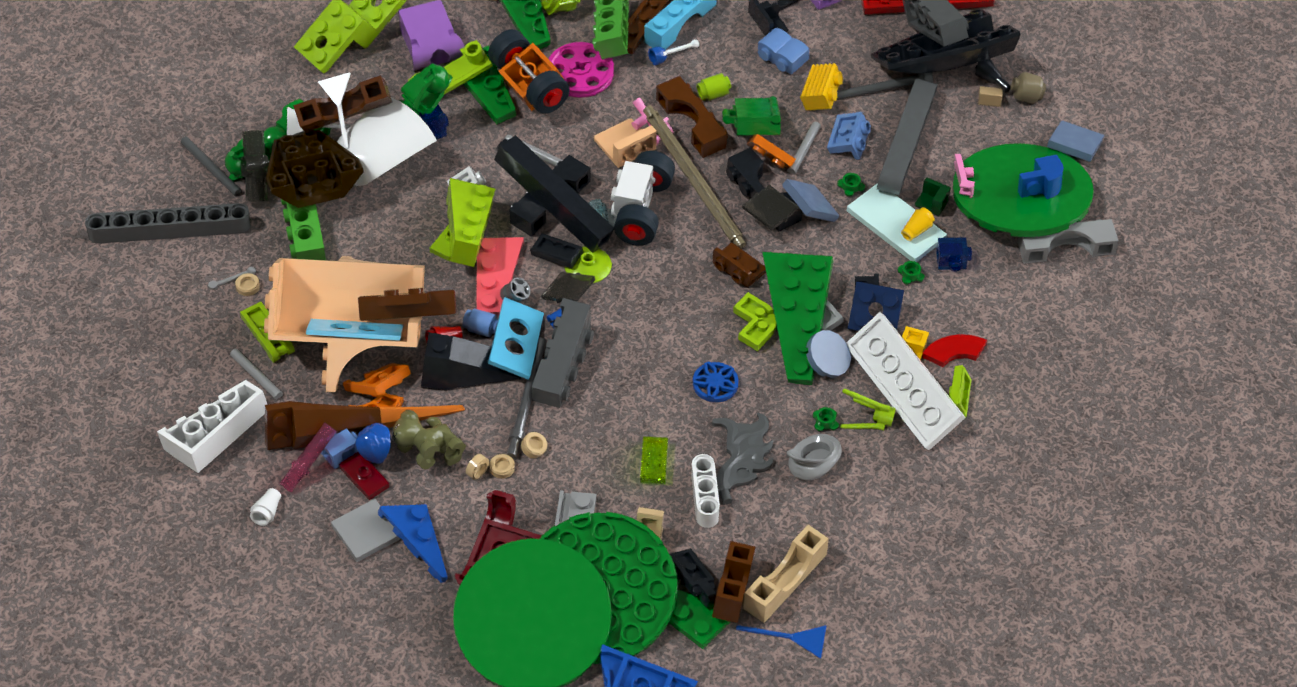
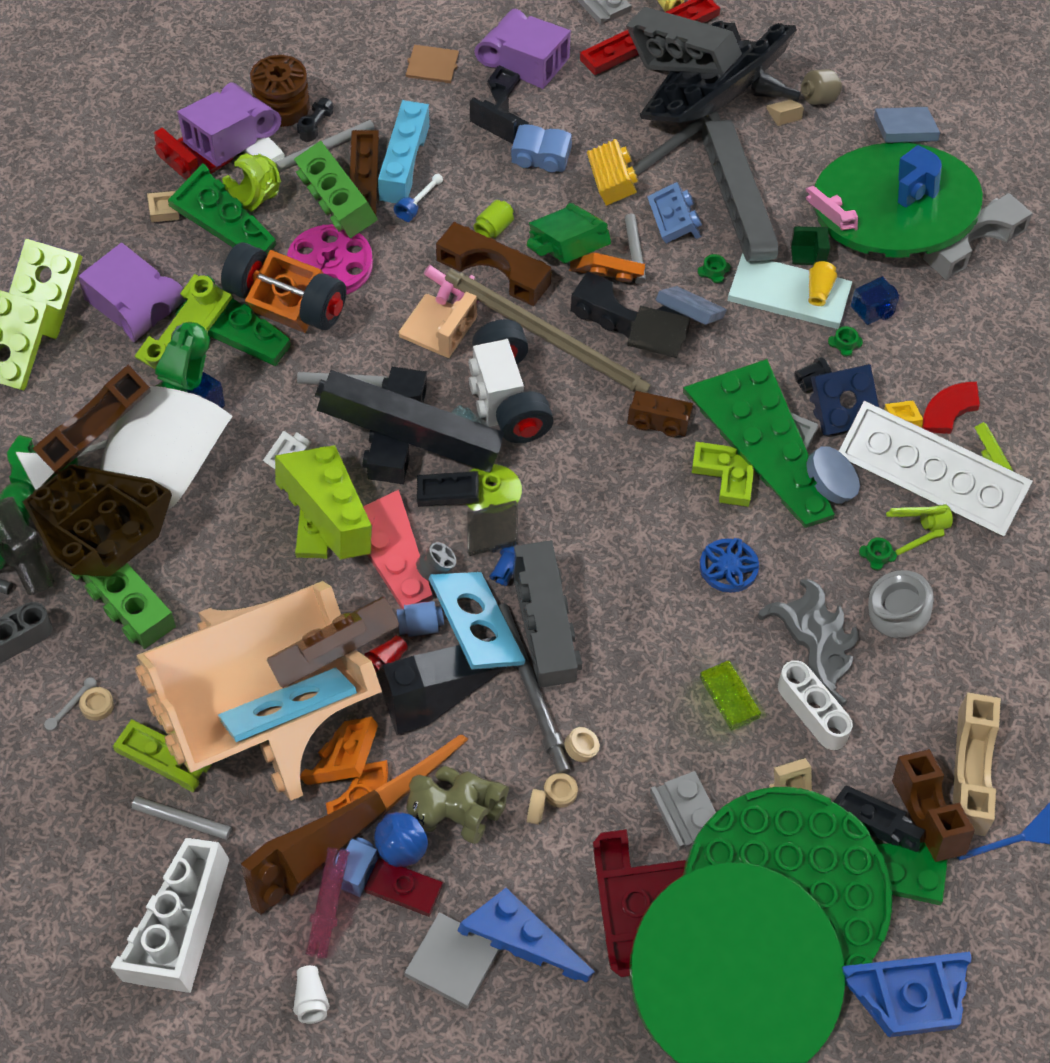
camera: 30 degrees left, 5 degrees up
(336, 88) = (74, 404): white piece -> none

